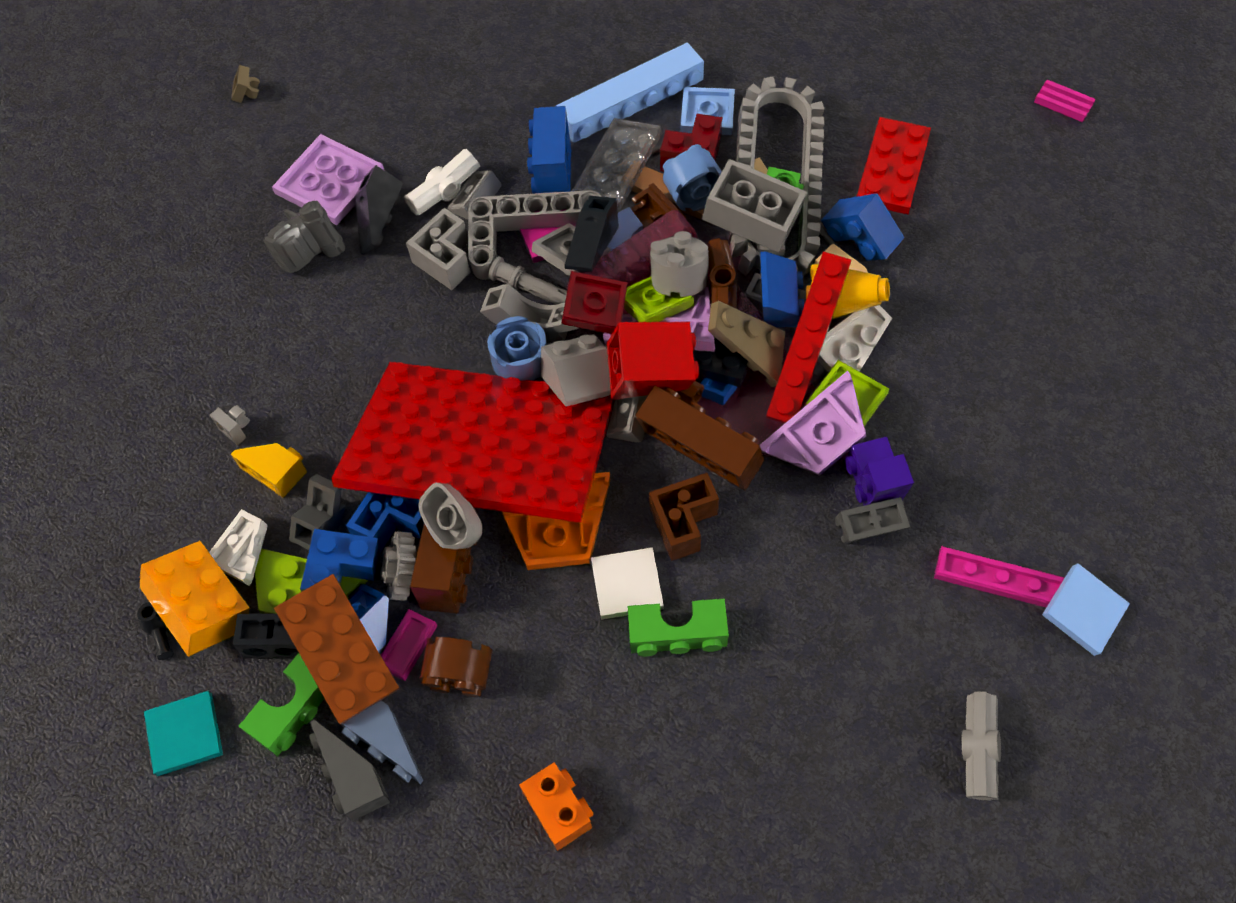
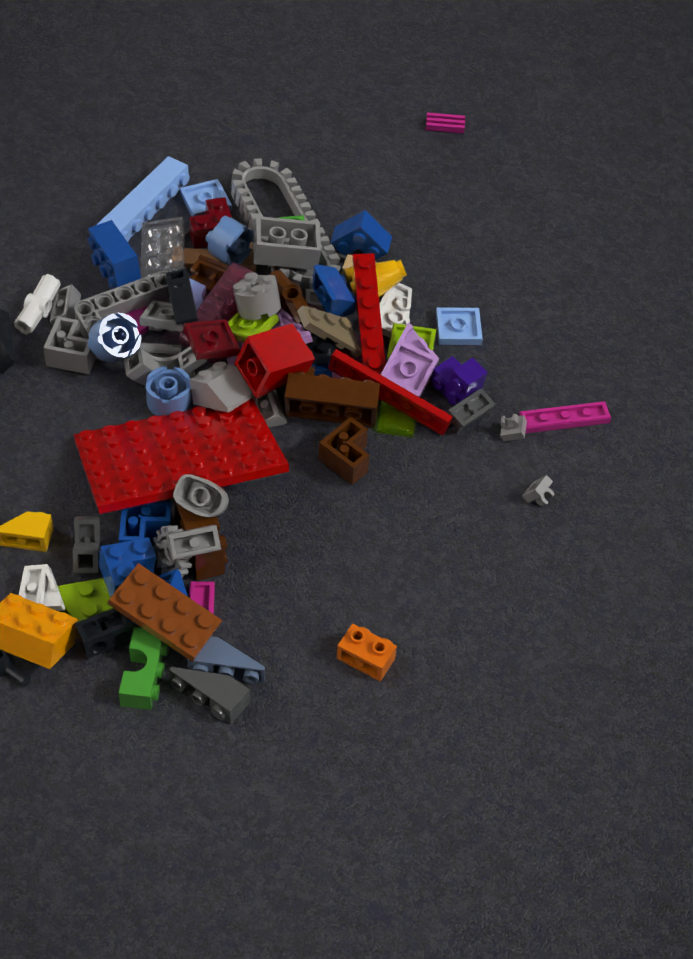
camera: 35 degrees left, 10 degrees down
(183, 733) = (72, 722): teal tile -> none
(412, 571) = (193, 542): none -> light grey slope
(455, 665) = (249, 596): reddish brown brick -> none
(500, 260) = (114, 337): none -> medium blue brick
(560, 542) = (263, 498): orange wing -> none
(626, 581) = (331, 509): white tile -> none
(652, 634) = (367, 529): bright green arch -> none
(779, 490) = (395, 422): none -> clear neon green piece
(783, 462) = (392, 393): none -> red plate
(894, 163) = (355, 192): red plate -> none
(903, 672) = (537, 491): none -> light grey tile
(919, 567) = (513, 427): none -> light grey tile
(928, 391) = (459, 326): none -> light blue tile
(981, 746) = (607, 511): light grey piece -> none
(1086, 609) = (624, 413): light blue tile -> none

